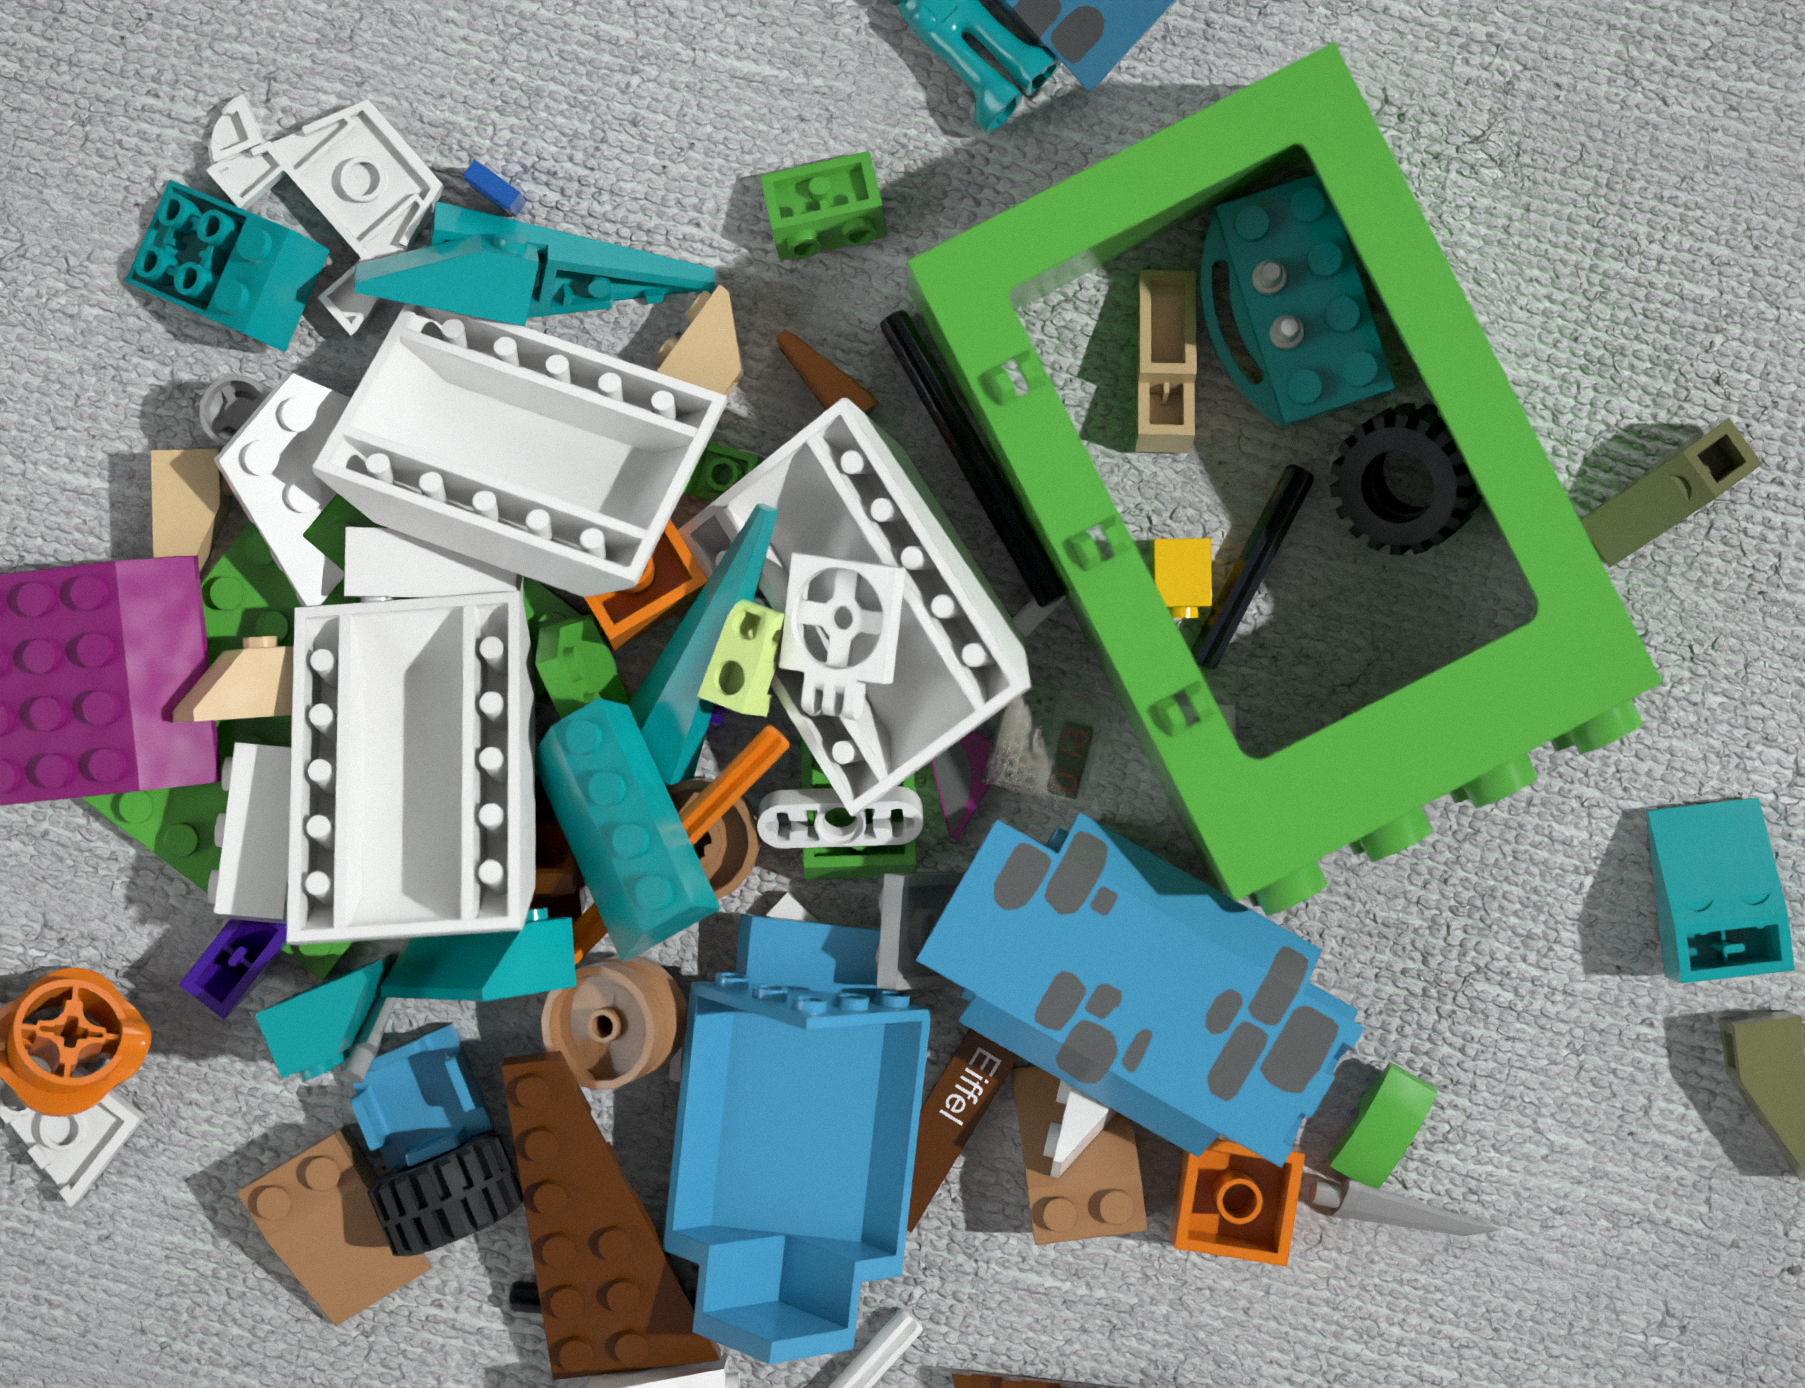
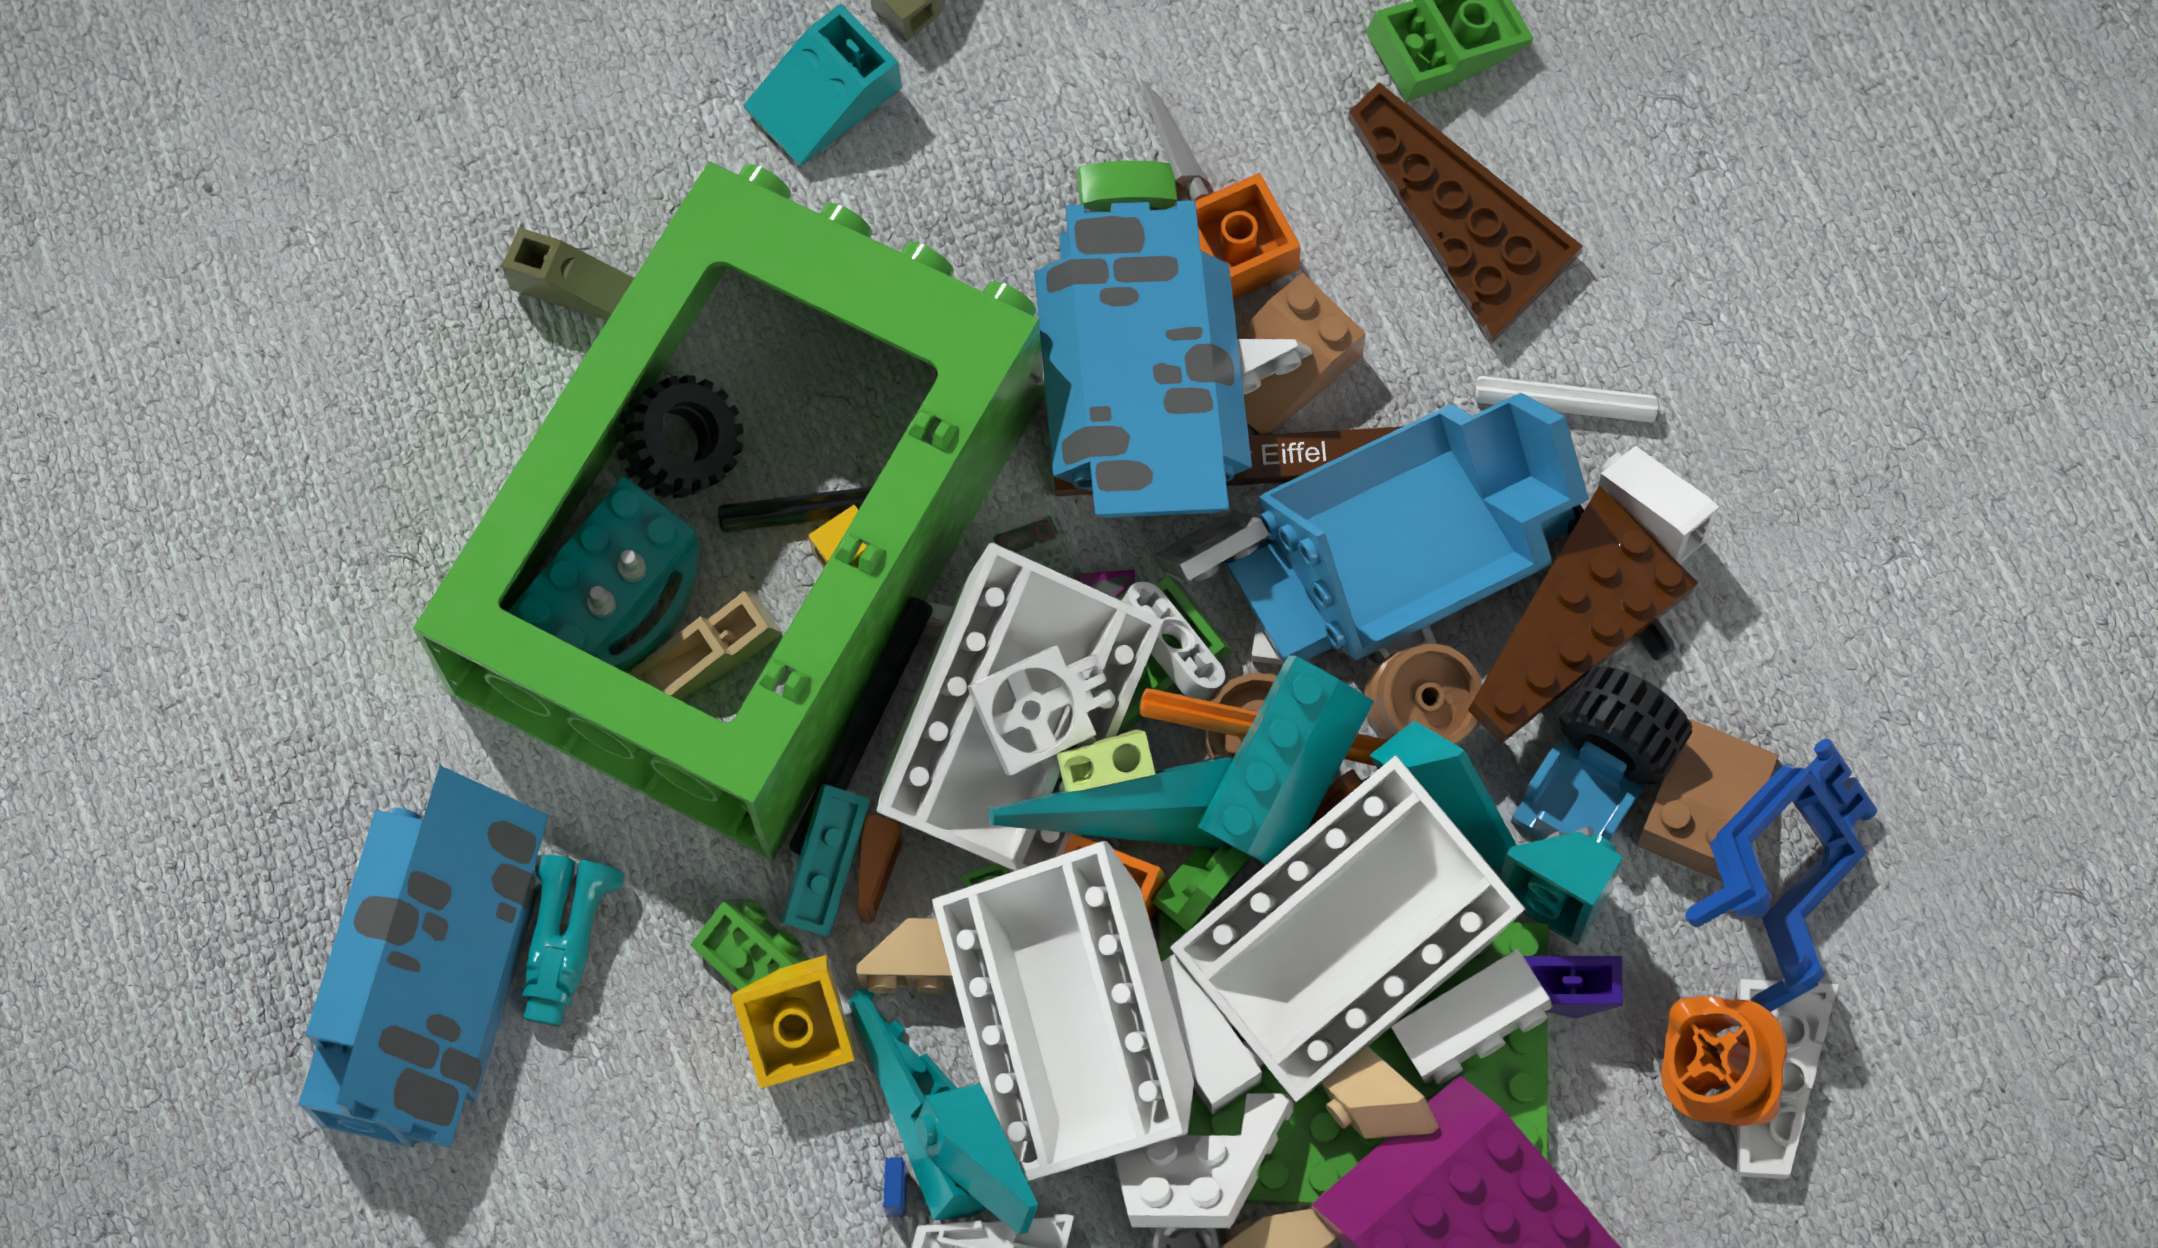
camera: 120 degrees left, 20 degrees down
(167, 1191) = (1831, 808): none -> blue piece
(709, 193) = (794, 1022): none -> yellow slope
(860, 333) = (825, 860): none -> teal plate

